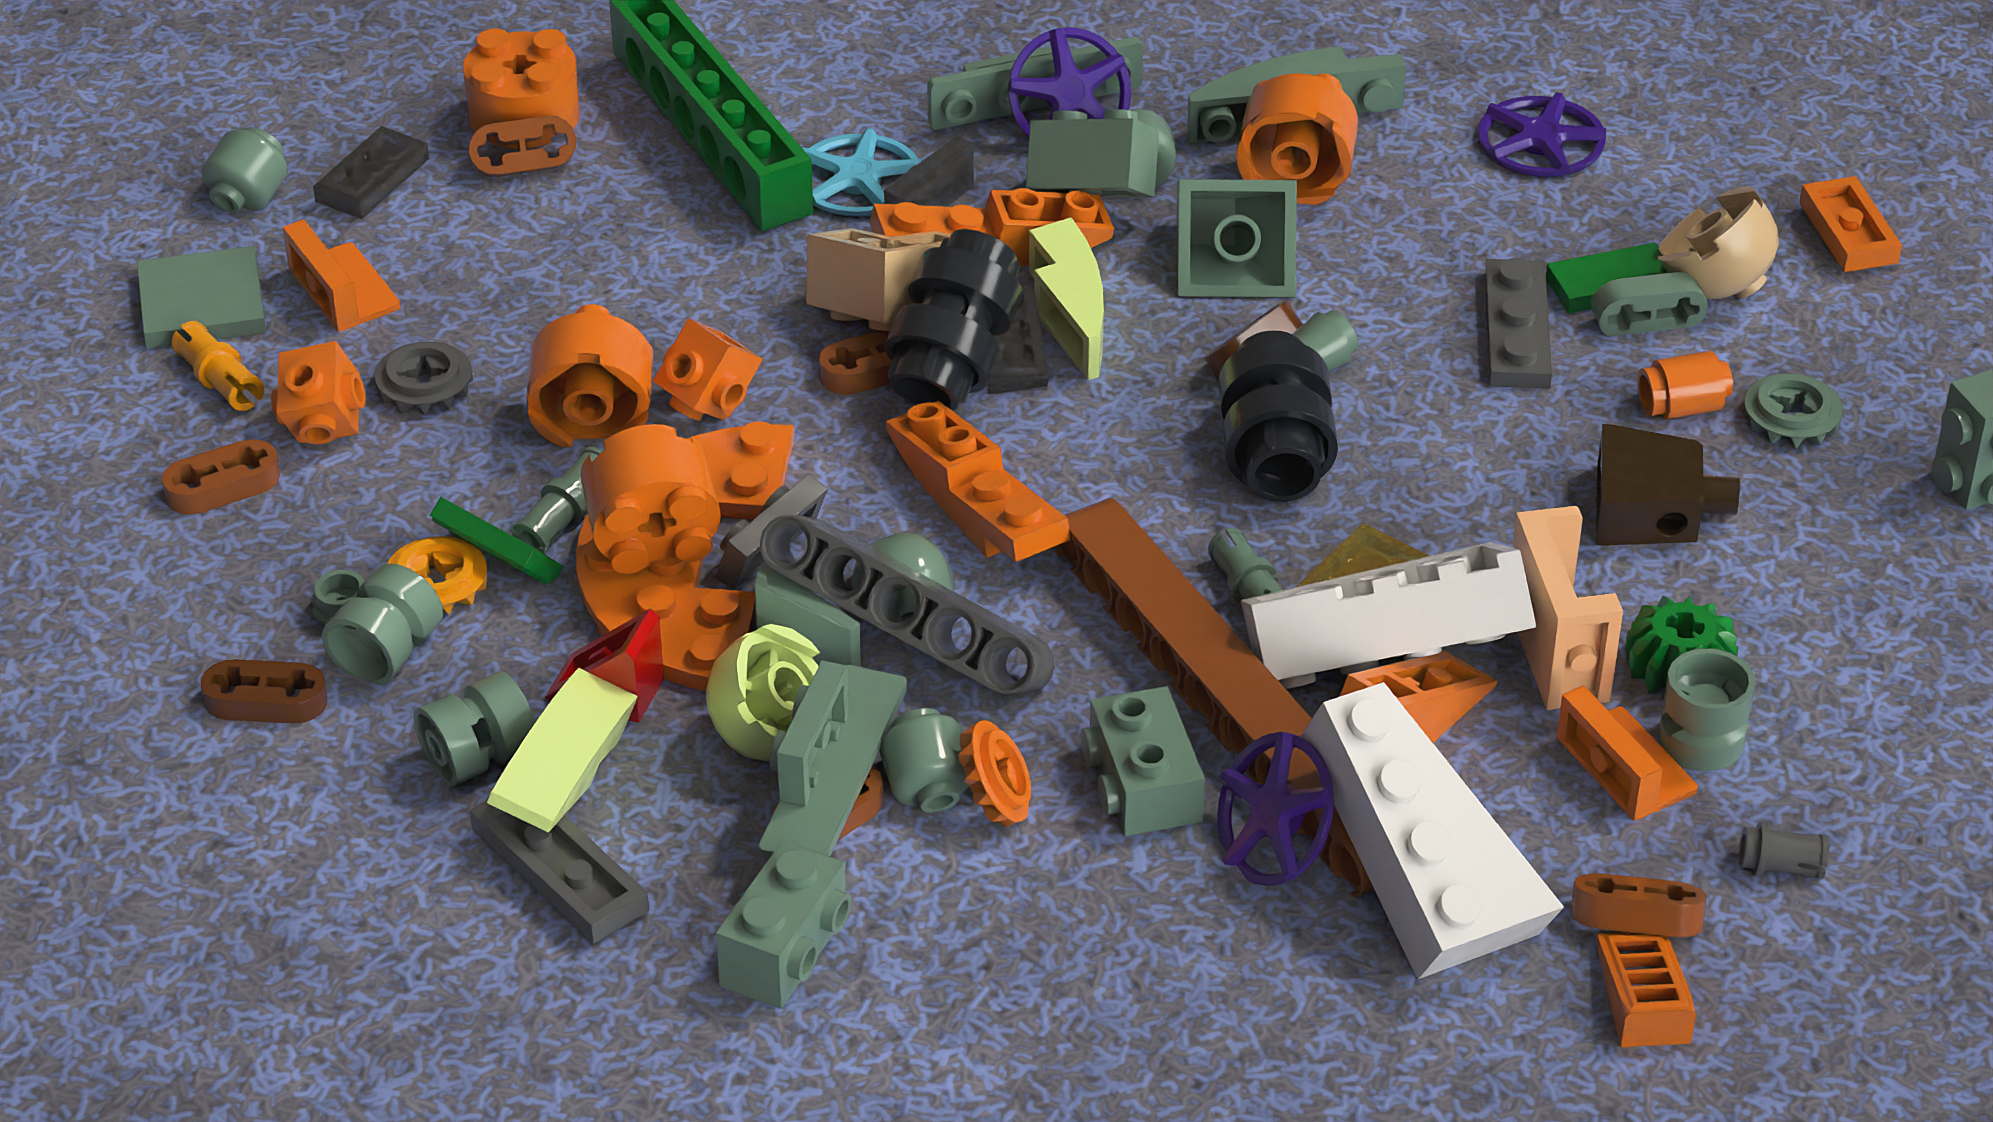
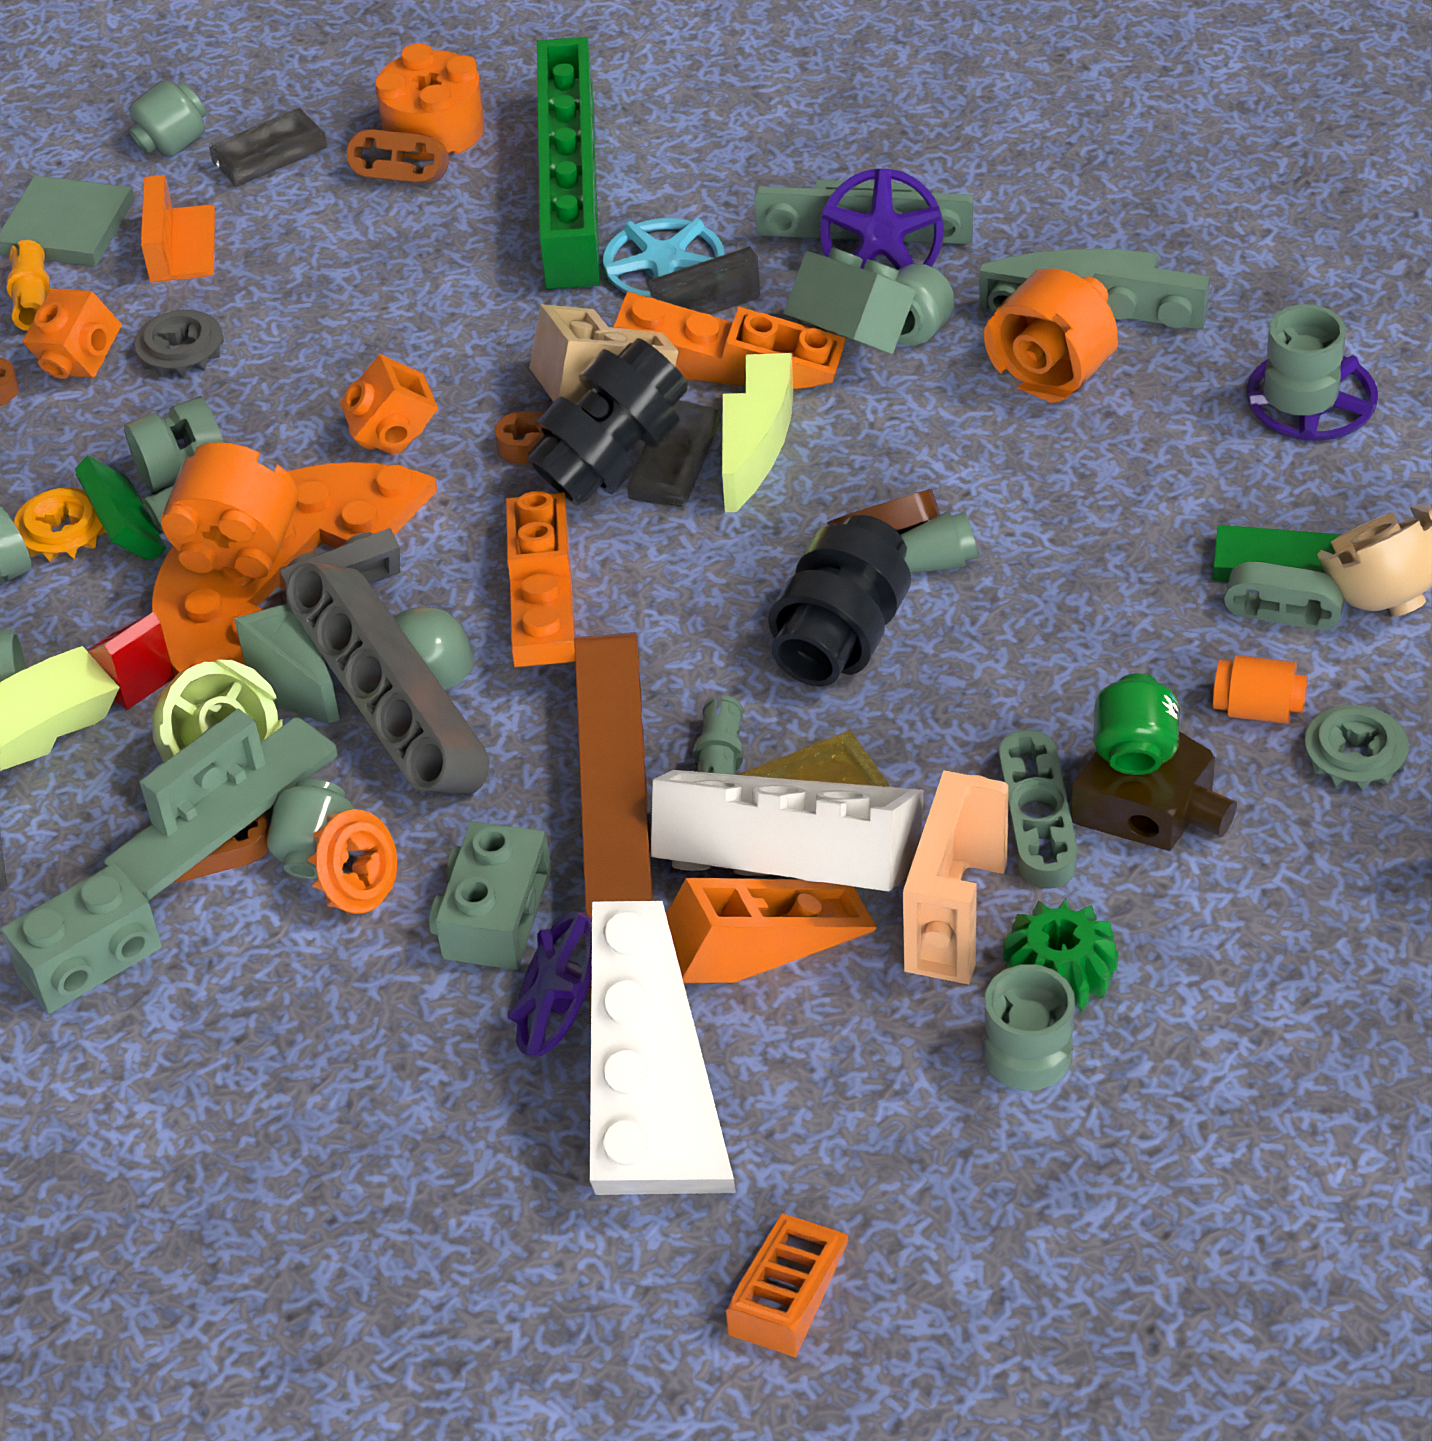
camera: 30 degrees right, 5 degrees up
(511, 465) = (155, 445): none -> sand green wheel
(588, 377) = (281, 384): orange brick -> none
(1236, 238) = (932, 416): sand green slope -> none
(1517, 323) = (1151, 576): dark grey plate -> none
(1538, 101) = (1304, 359): none -> sand green wheel
(1607, 557) = (1046, 788): none -> sand green beam
(1621, 755) = (937, 1045): orange panel -> none
(1636, 432) = (1136, 724): none -> green head
(1638, 905) = (834, 1200): dark orange beam -> none
(1783, 851) = (1012, 1198): dark grey pin -> none

